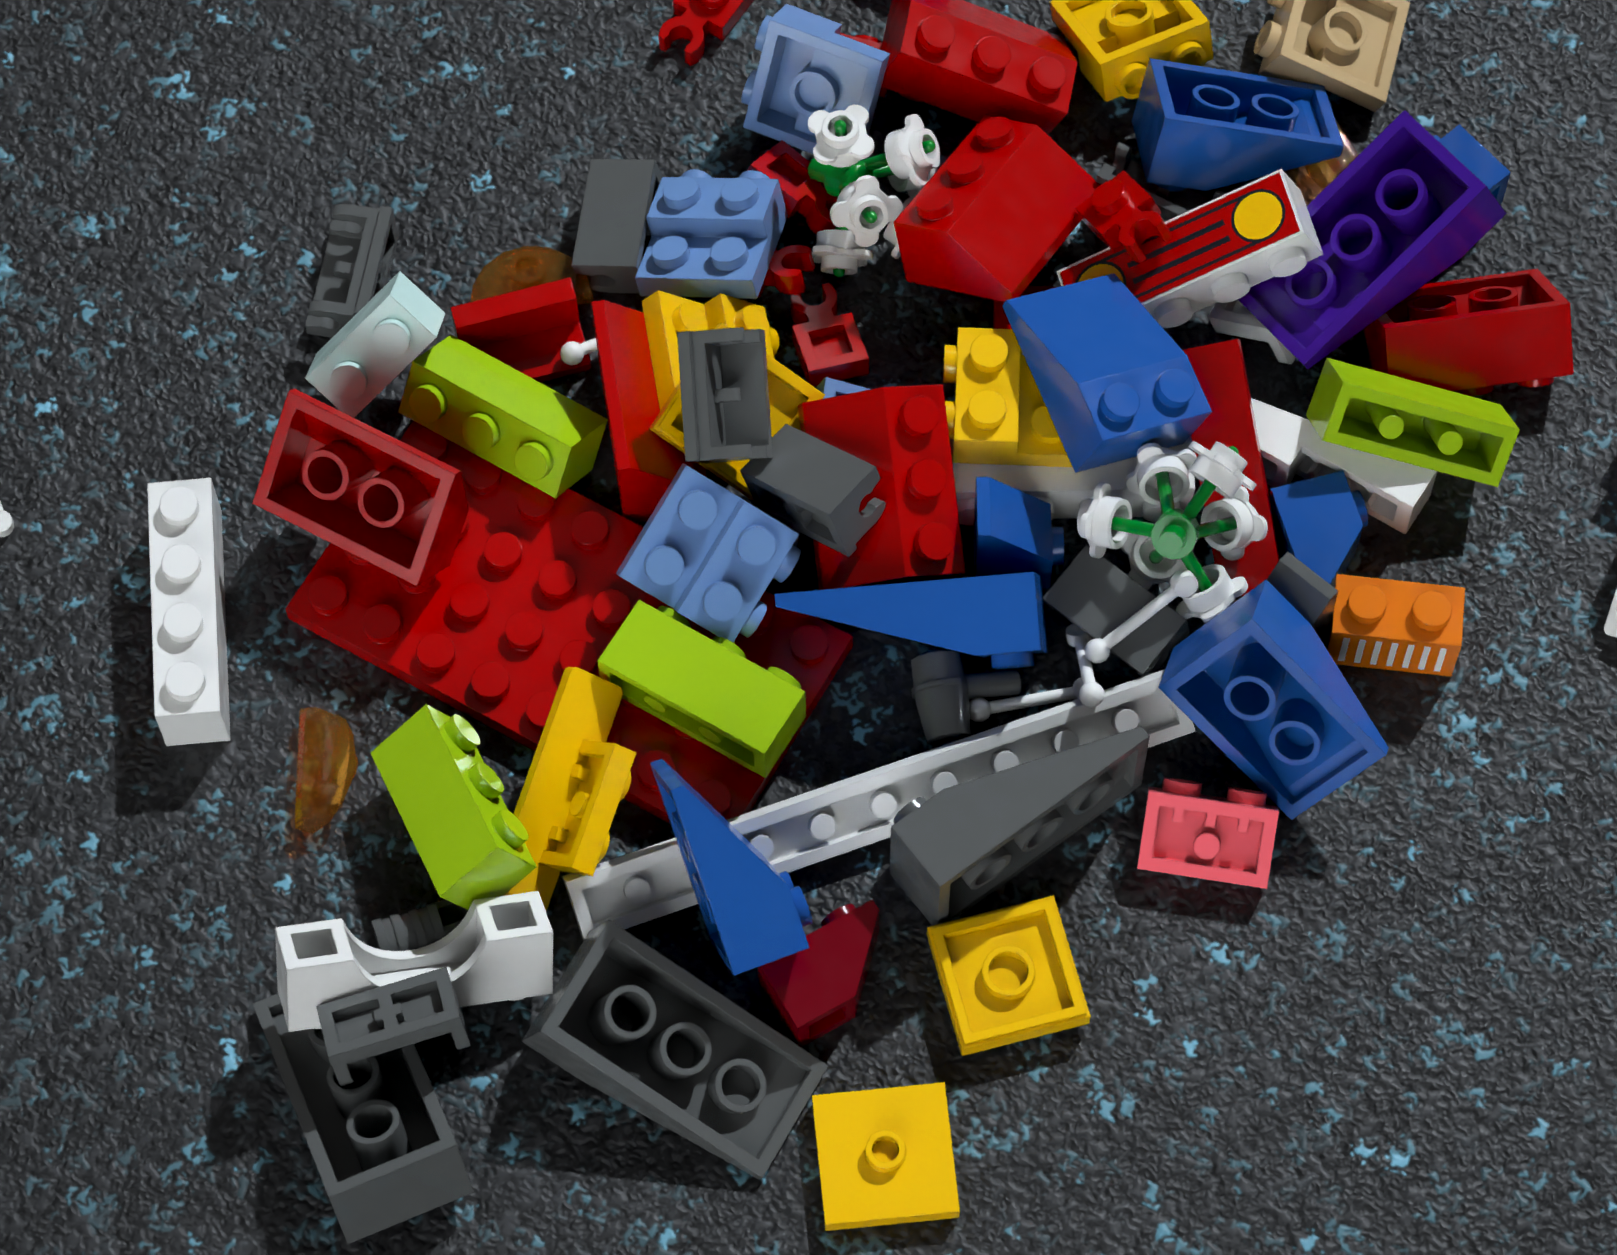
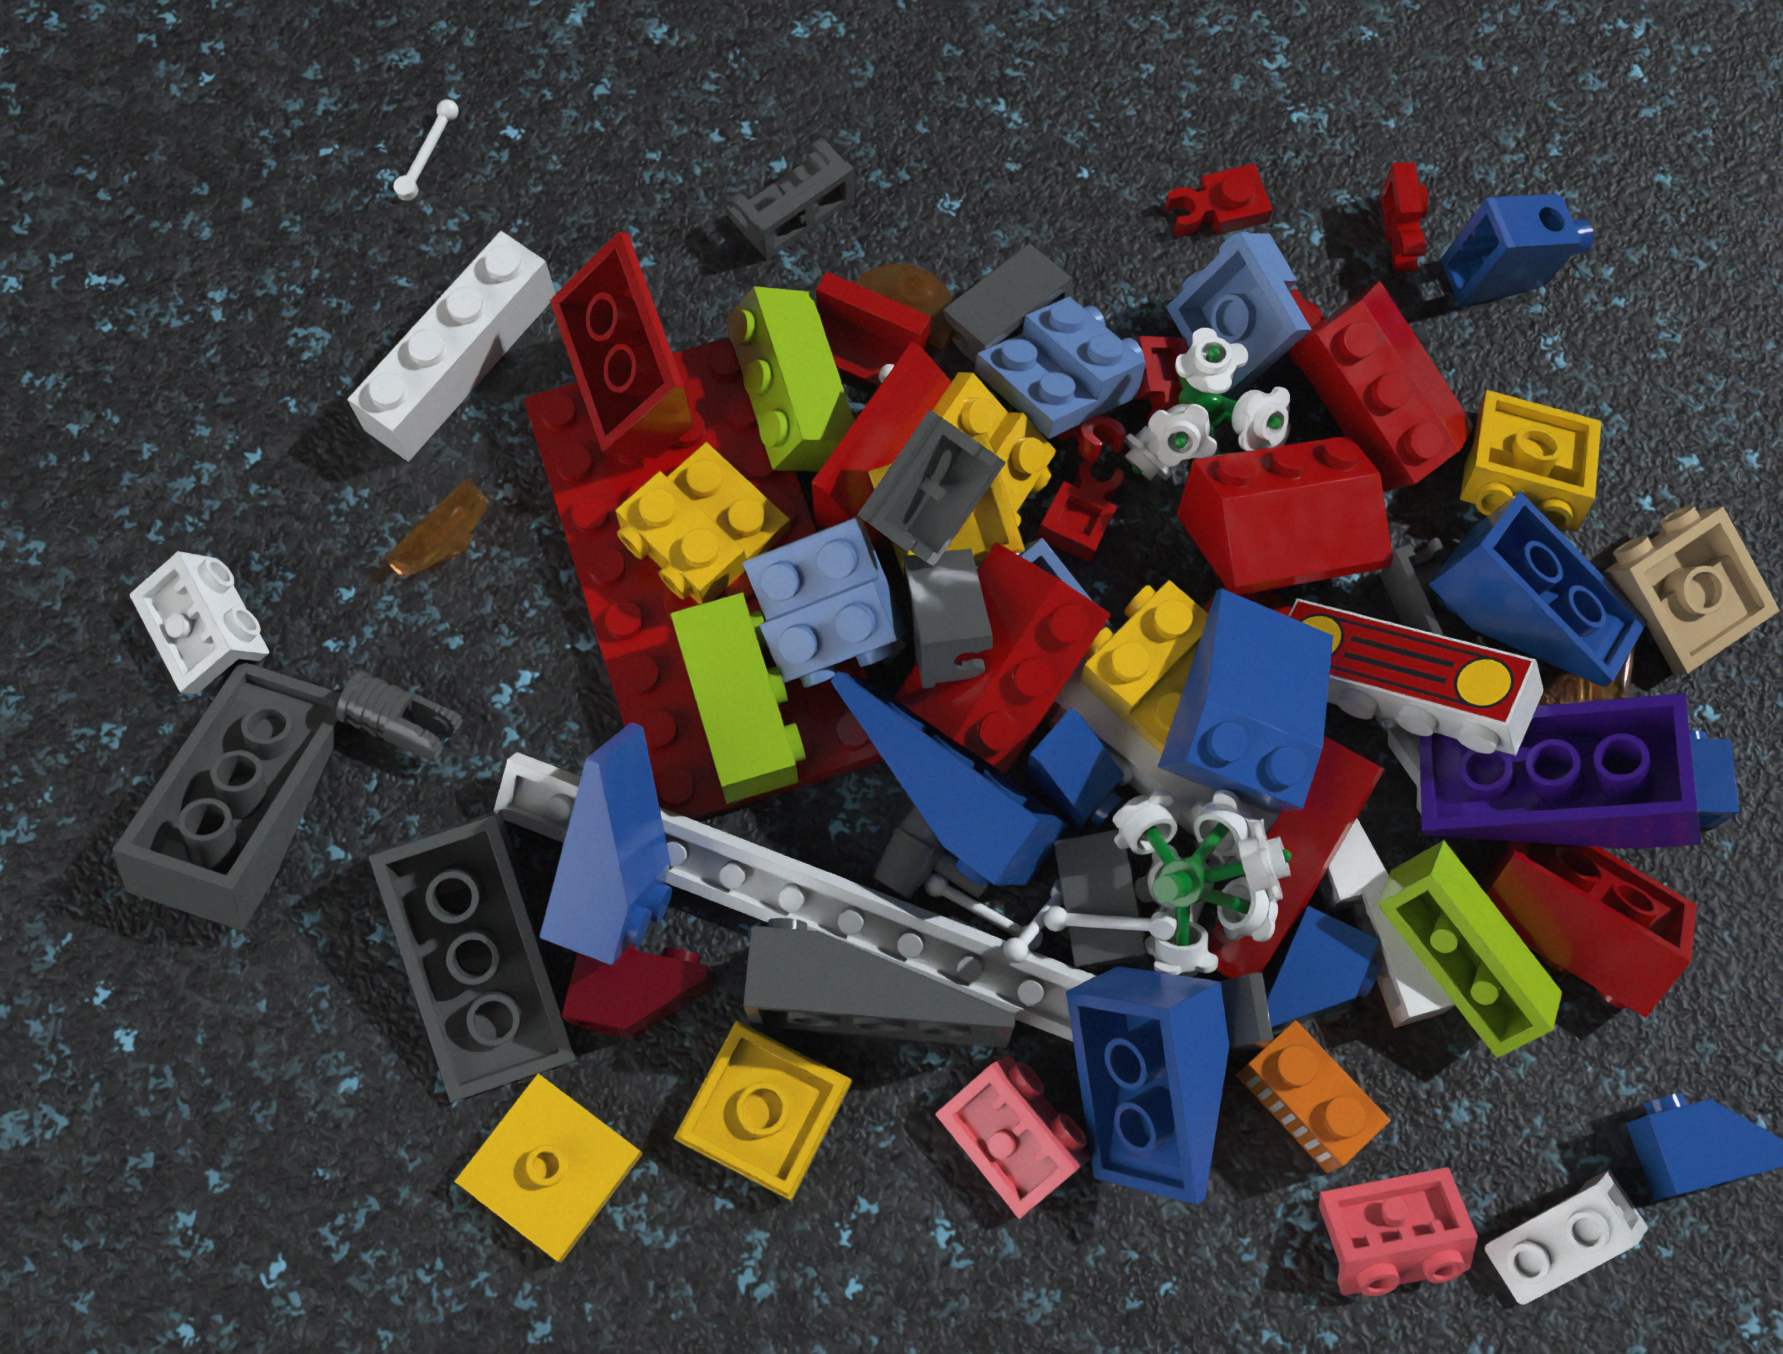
camera: 40 degrees right, 5 degrees up
(187, 999) = (197, 619): none -> white bracket
(375, 345) = (745, 256): light aqua brick -> none
(390, 1019) = (277, 757): dark grey hinge -> none
(453, 807) = (479, 639): lime brick -> none
(491, 956) = (281, 693): white arch -> none
(542, 584) = (700, 524): none -> yellow plate
(573, 783) = (564, 696): yellow bracket -> none
(1123, 215) = (1382, 597): red plate -> none
(1537, 669) = (1398, 1232): none -> coral bracket

